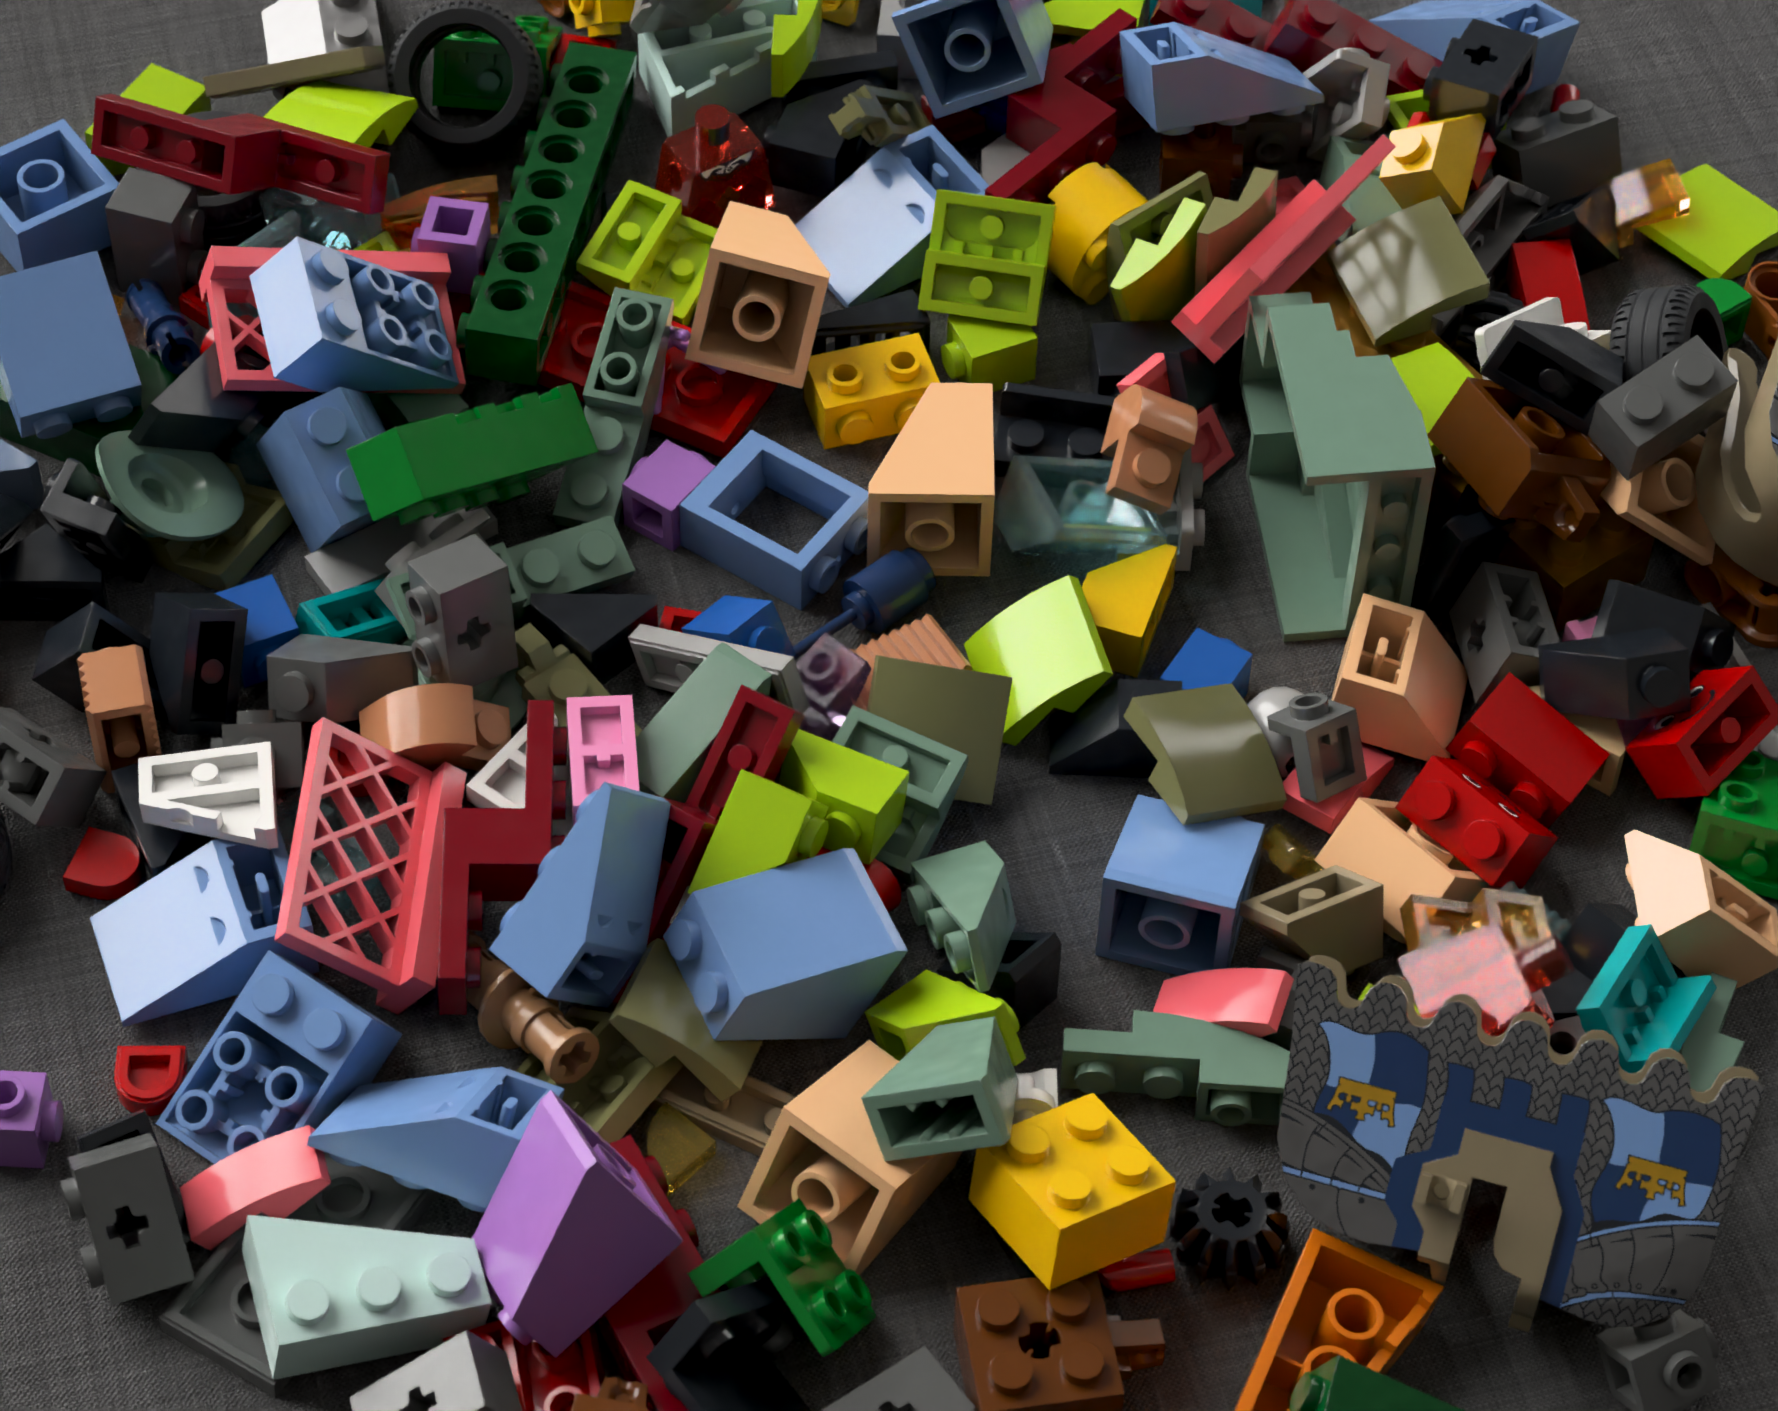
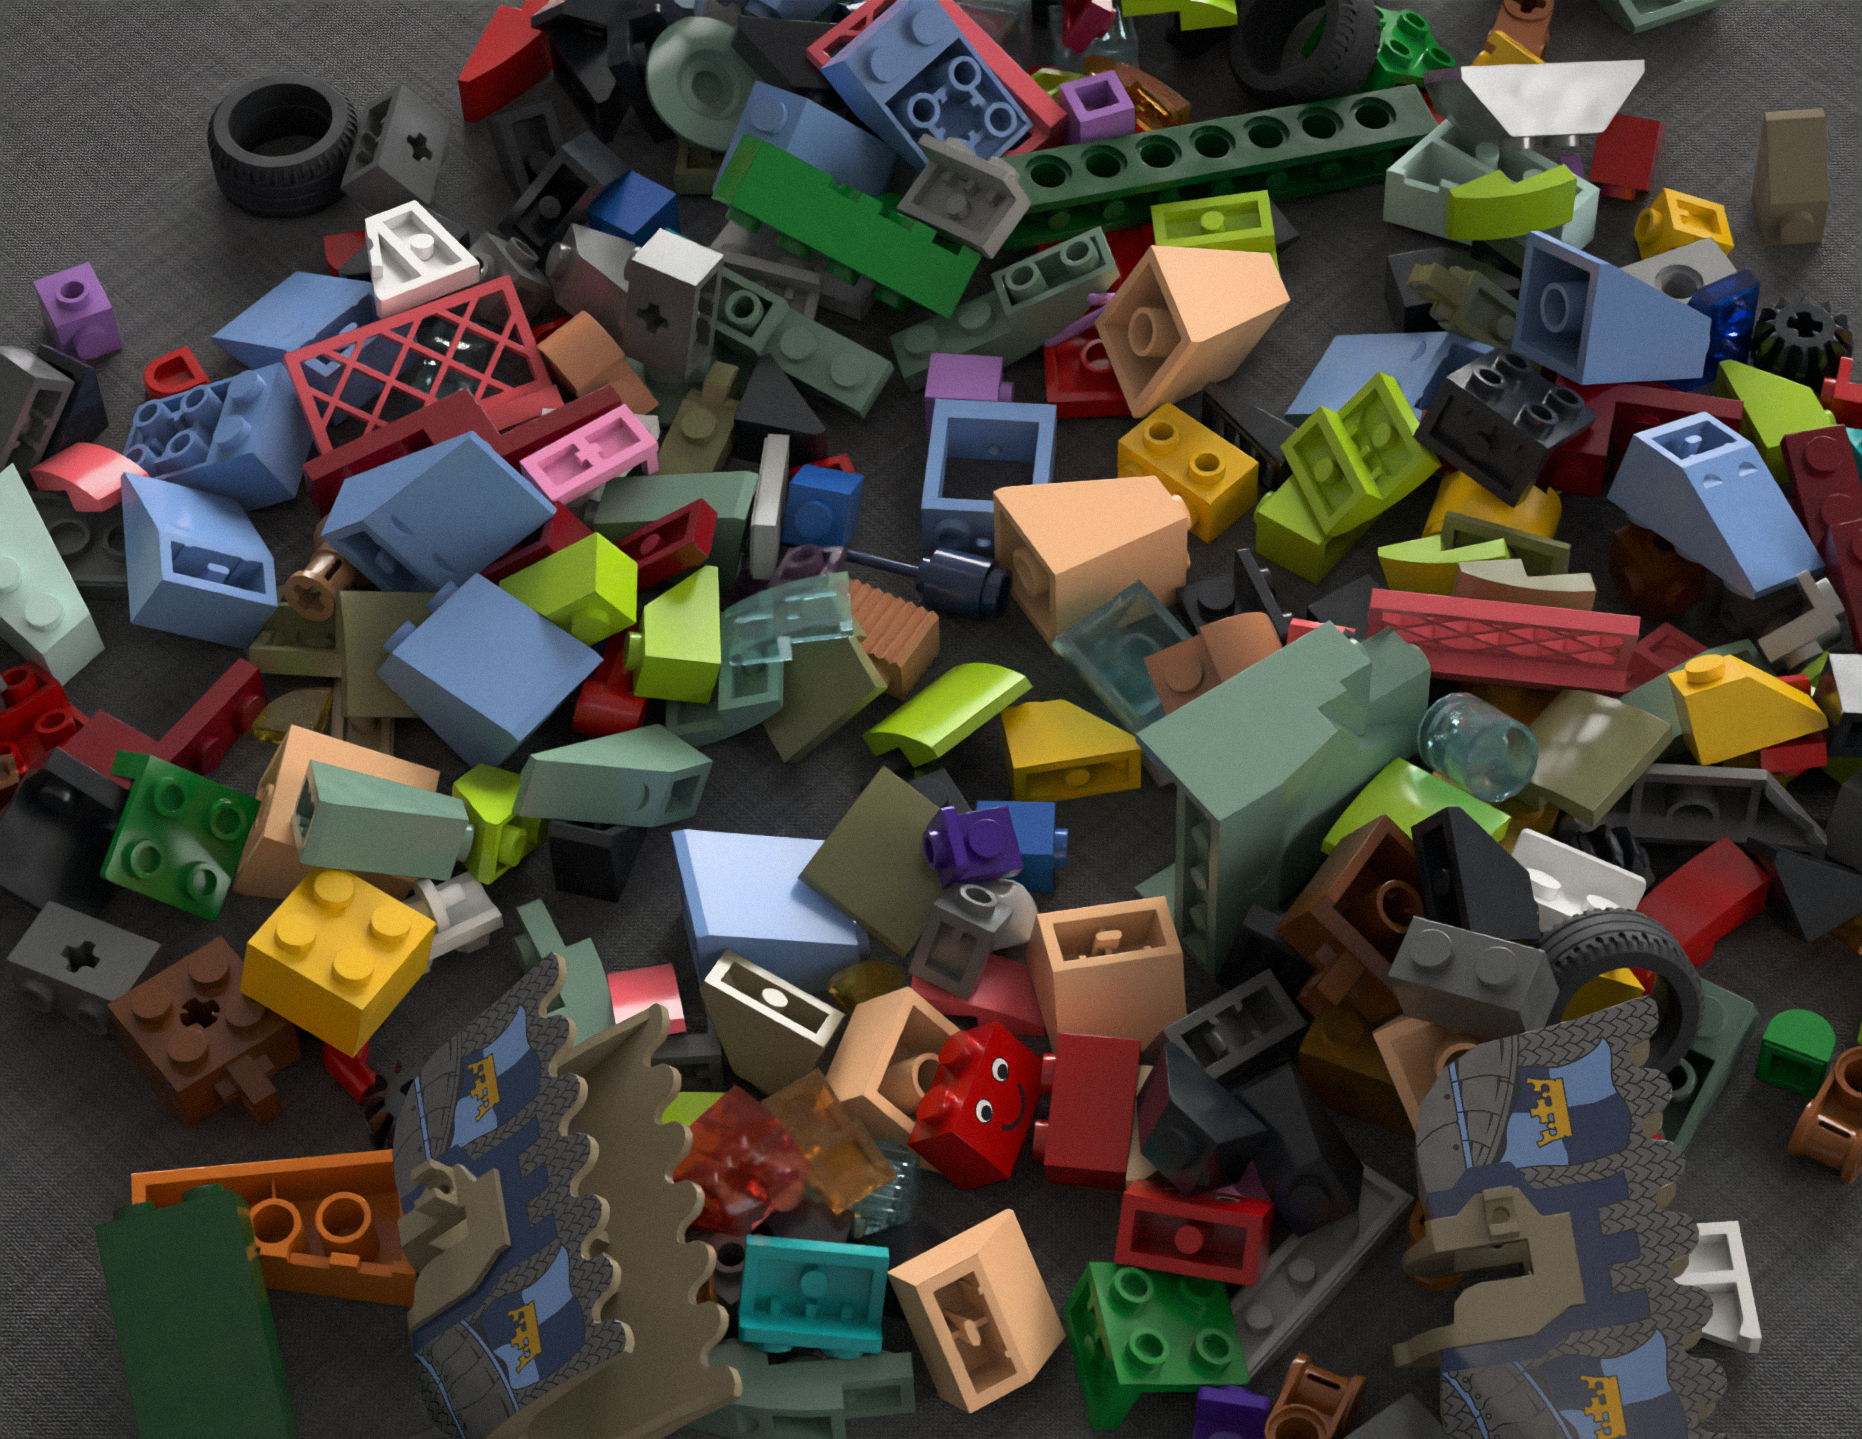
camera: 65 degrees right, 0 degrees up
(118, 708) = (471, 174): nougat brick -> none
(505, 354) = (965, 196): none -> light grey bracket
(567, 1230) = (123, 656): medium lavender slope -> none
(715, 165) = (1343, 249): clear red torso -> none
(898, 697) = (794, 612): none -> clear light blue slope
(1064, 142) = (1502, 422): none -> black bracket
(1241, 688) = (972, 846): none -> dark purple bracket
(1386, 315) = (1477, 746): none -> clear light blue wheel

